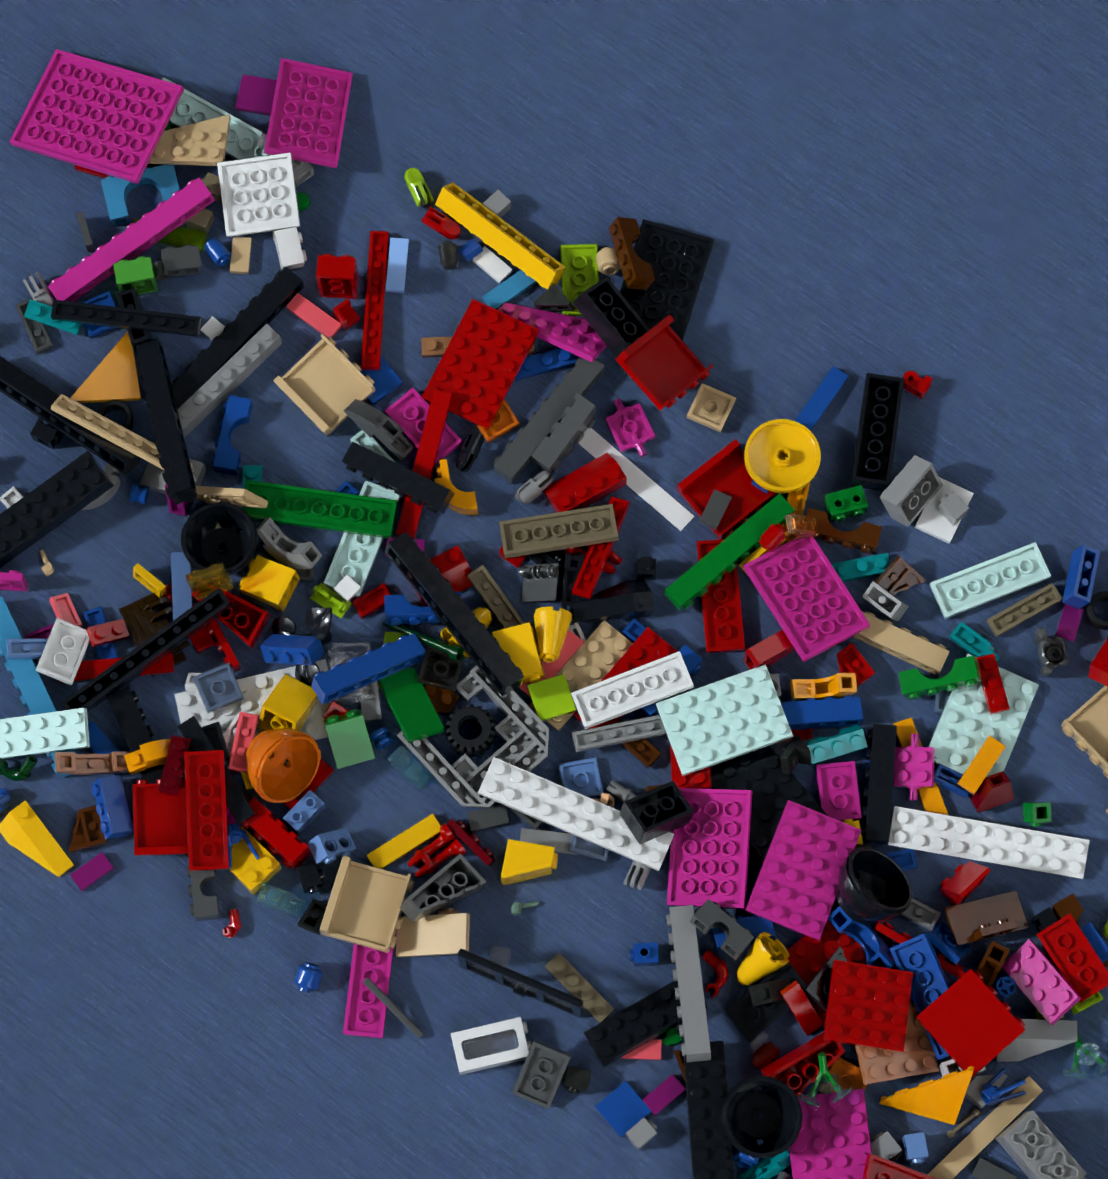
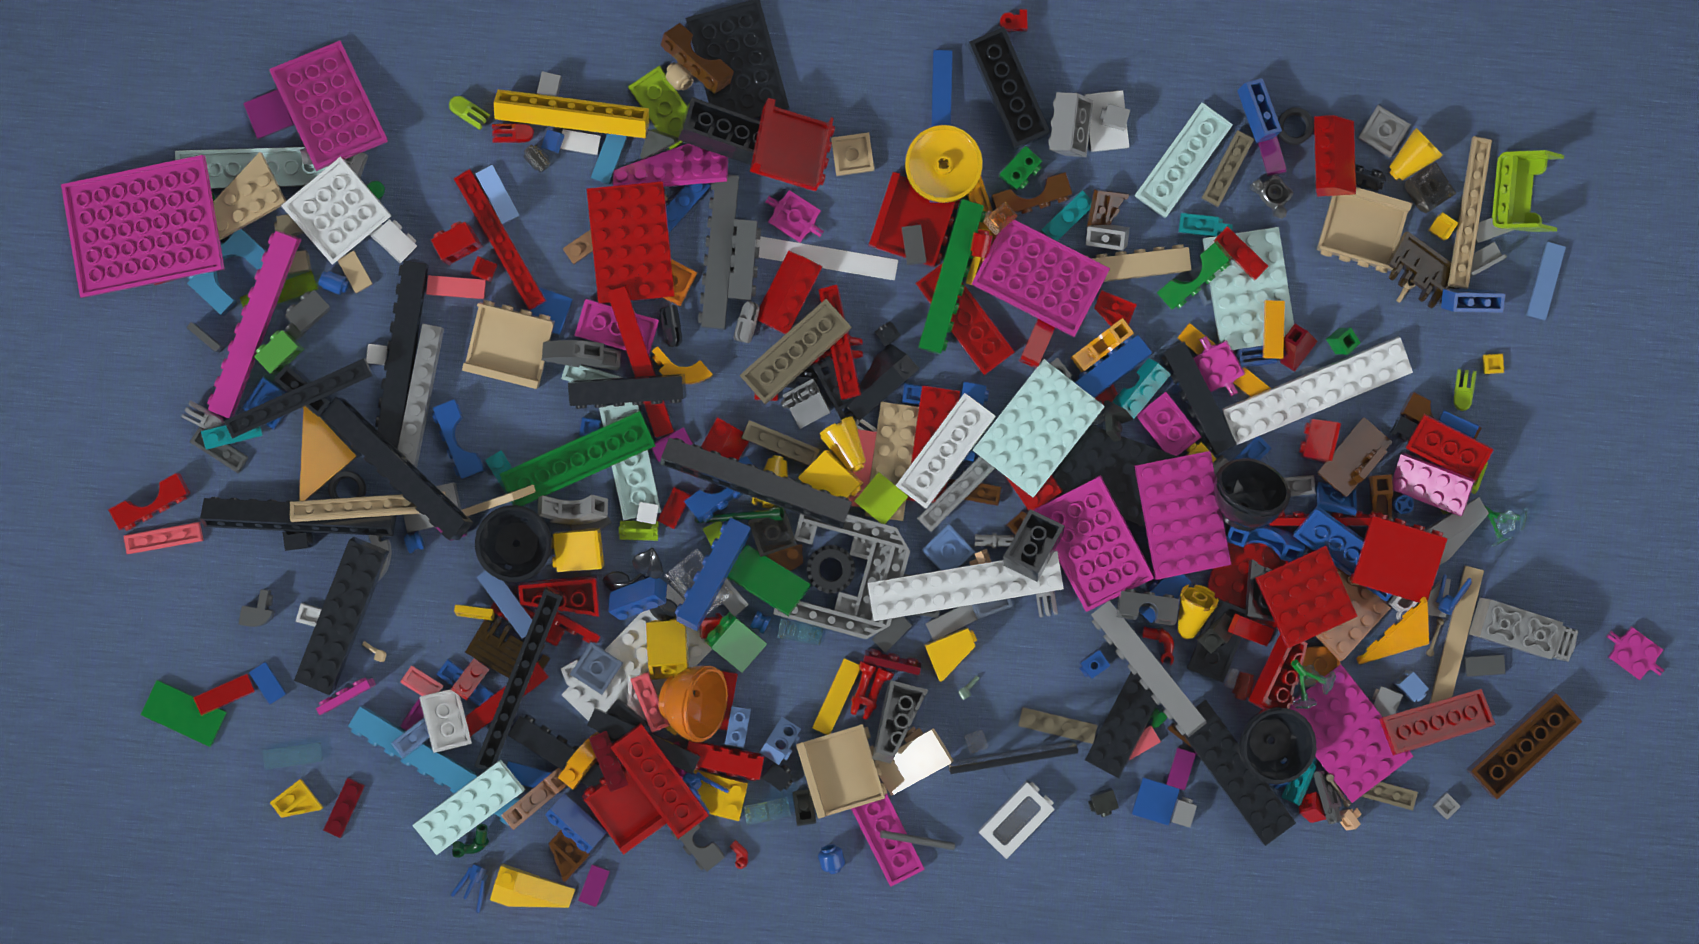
camera: 40 degrees left, 15 degrees up
(208, 580) = (533, 585): clear yellow plate -> none
(541, 1074) = (1074, 817): dark grey plate -> none

